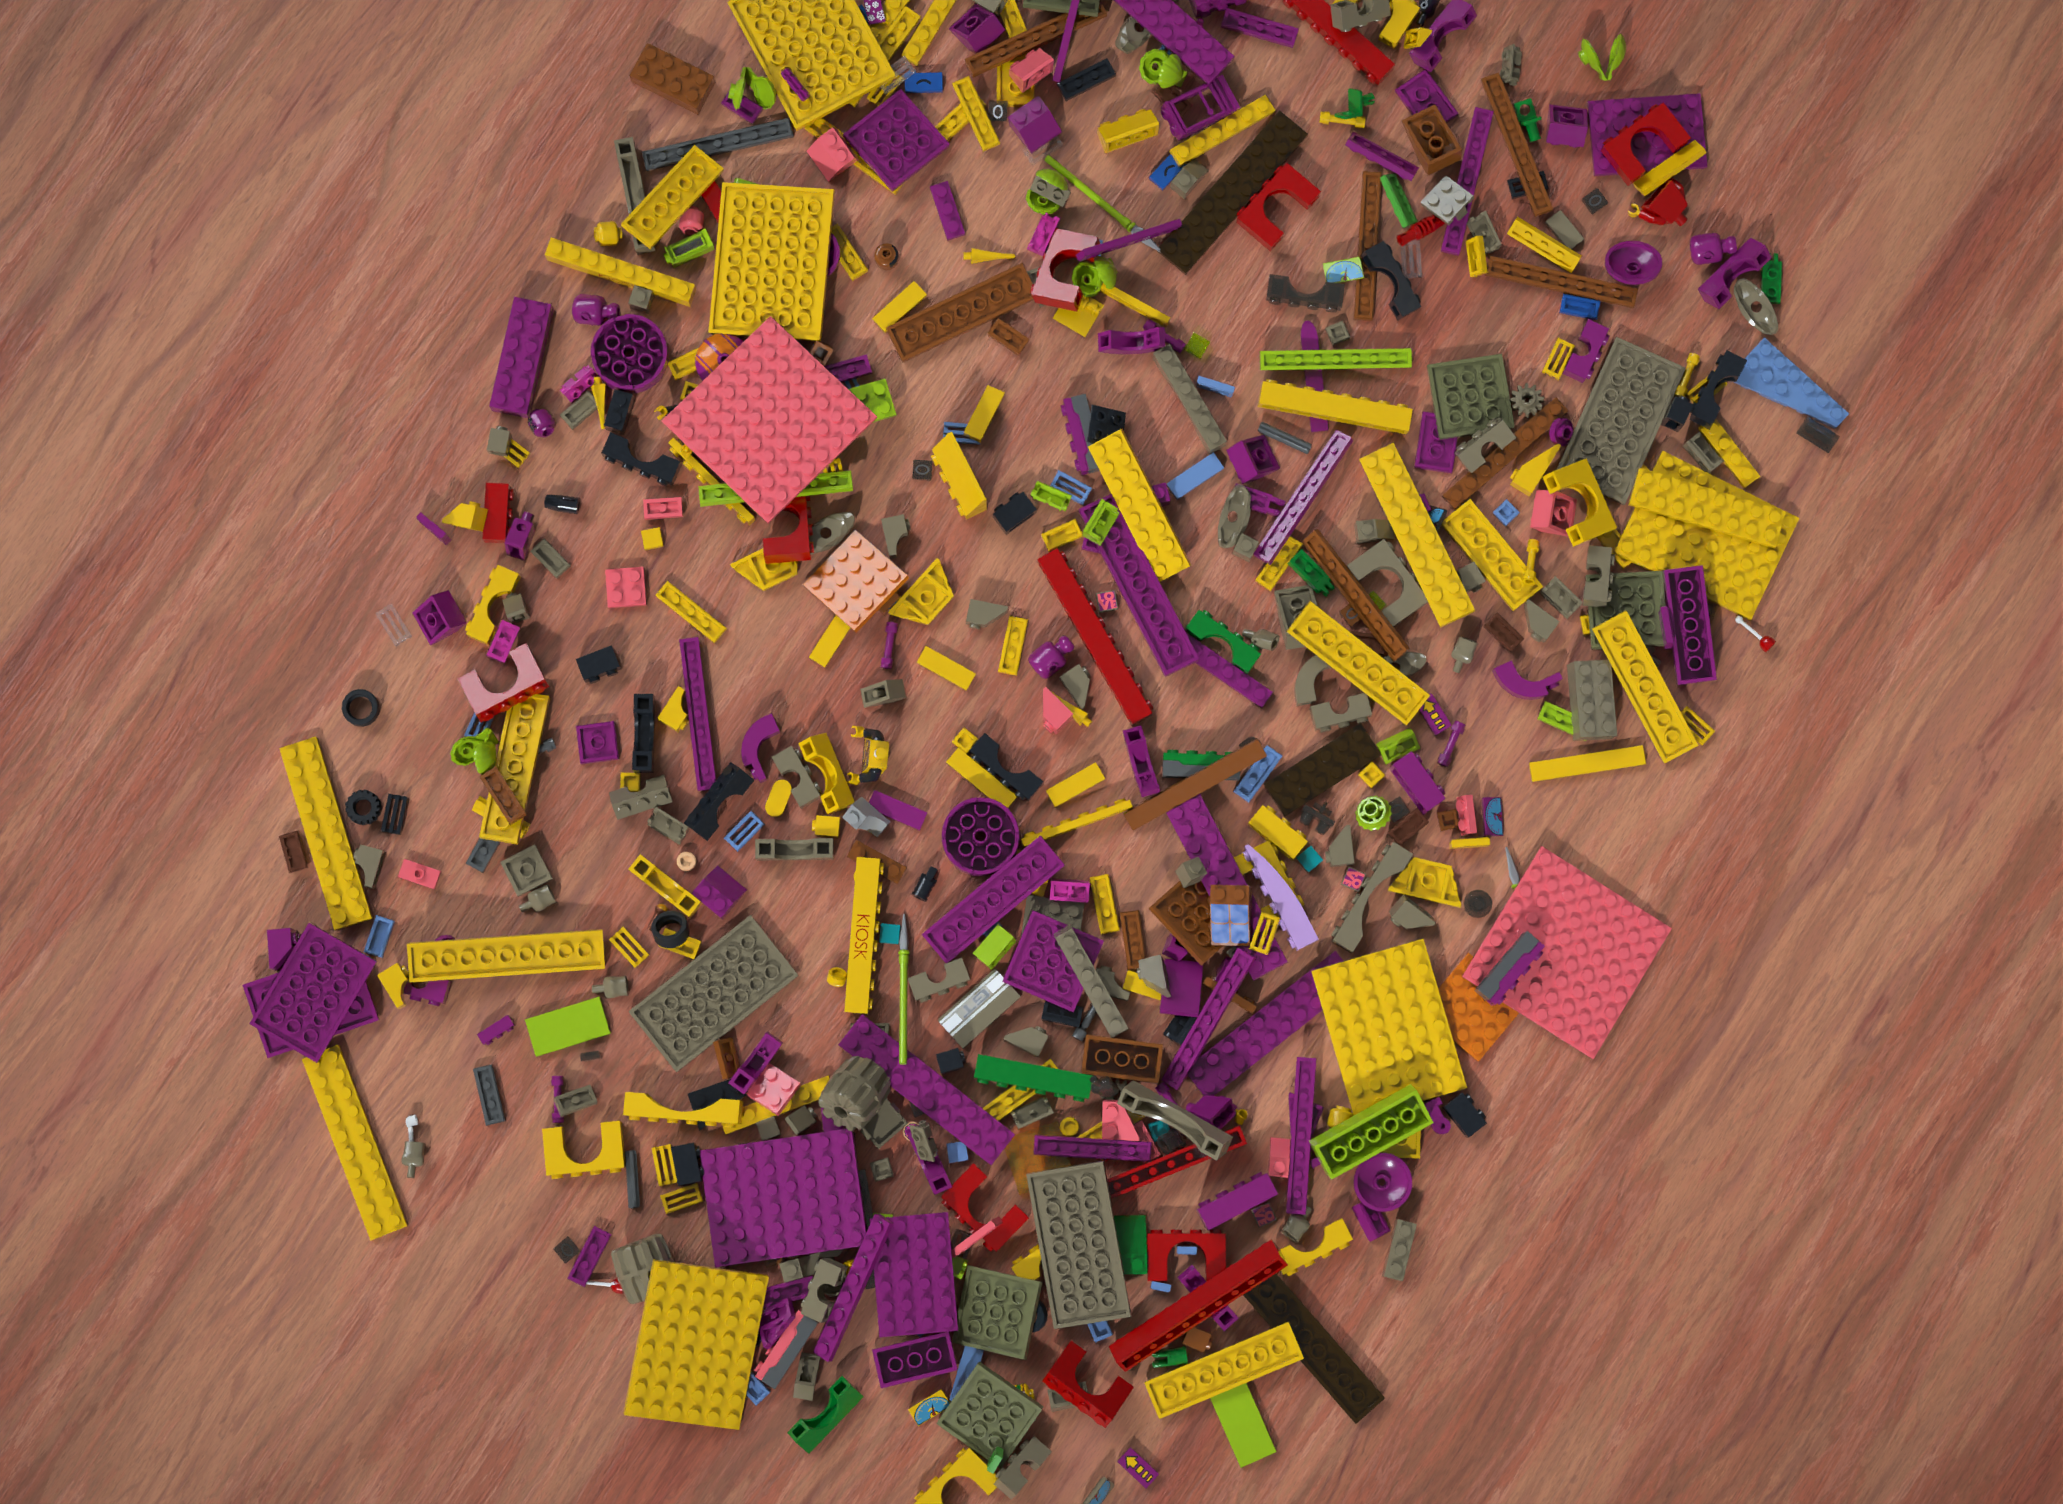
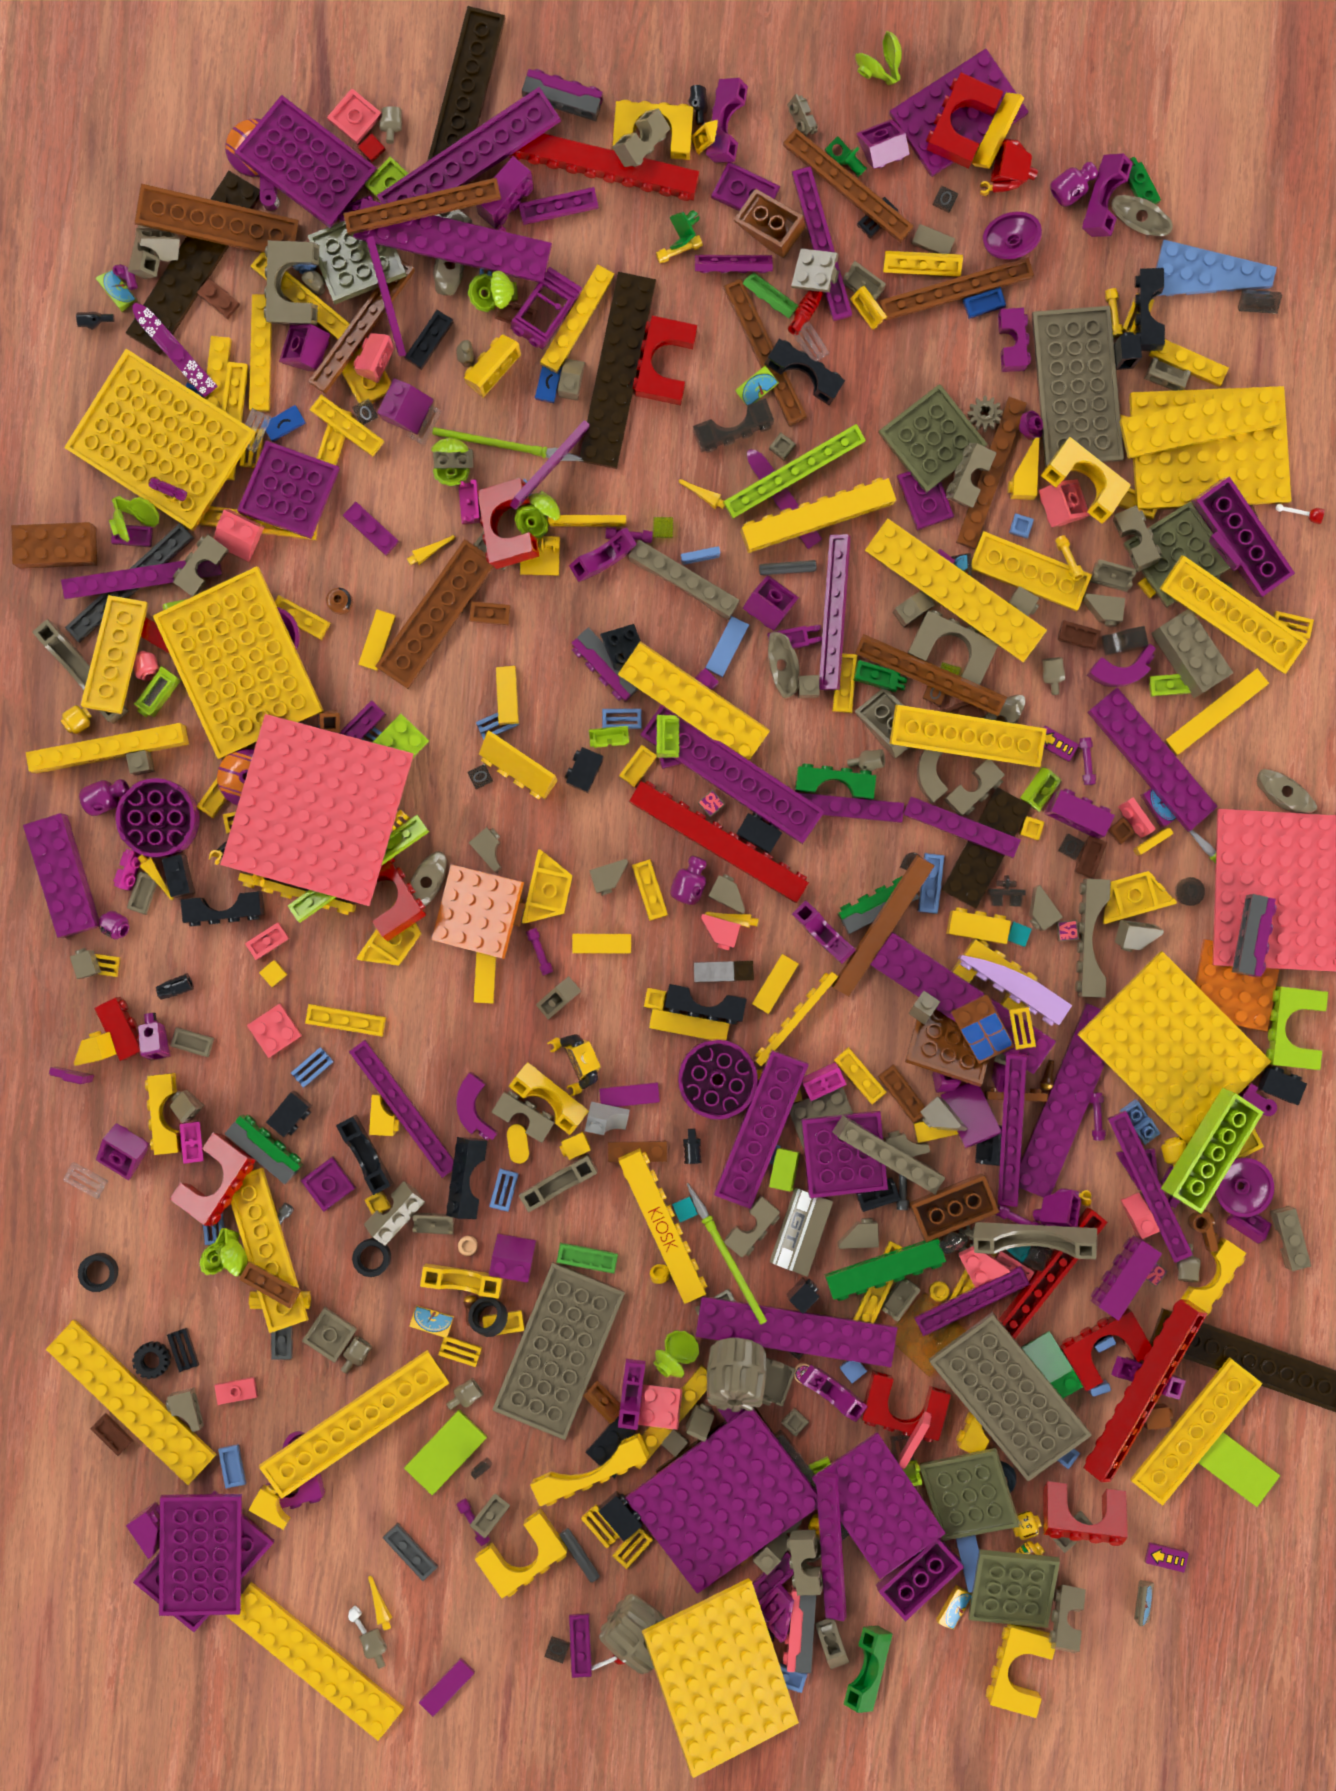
camera: 30 degrees left, 5 degrees up
(435, 1134) = (382, 1613): none -> yellow piece
(454, 1228) = (446, 1687): none -> magenta tile
(496, 1030) = (384, 1491): magenta piece -> none
(560, 681) = (263, 1148): none -> piece
(599, 810) = (371, 1272): none -> black tyre
(619, 908) = (431, 1321): none -> slope
(642, 635) = (299, 1077): none -> medium blue tile
(730, 145) = (131, 579): none -> magenta plate
(770, 167) = (207, 550): none -> dark tan arch
(782, 928) = (587, 1257): none -> bright green plate
(817, 1049) = (679, 1348): none -> lime animal
(925, 1147) = (825, 1385): dark tan hinge -> none
(995, 1459) = (1040, 1626): bright green tile -> none
(1031, 1369) = (1028, 1525): none -> yellow head
(1037, 749) = (723, 971): none -> slope
(1110, 108) = (465, 353): none -> dark tan piece
(1133, 648) = (759, 832): none -> black brick
(1175, 1356) = (1142, 1445): green hinge -> none
(1252, 343) = (712, 498): none -> yellow piece
(1263, 999) = (1047, 1081): none -> reddish brown piece
(1298, 1037) = (1097, 1098): none -> magenta bar
(1310, 739) = (962, 827): none -> magenta plate
(1325, 1079) = (1142, 1123): none -> medium blue slope
(1329, 1211) = (1210, 1238): none -> dark orange plate
(1373, 813) = (1053, 861): lime piece -> none
(1482, 1086) = (1286, 1002): none -> lime arch
(1508, 773) = (1152, 759): none -> magenta plate
(1540, 659) = (1125, 641): none -> clear smoke arch
(1552, 372) = (991, 377): yellow tile -> none
(1601, 850) = (1272, 783): none -> dark tan piece

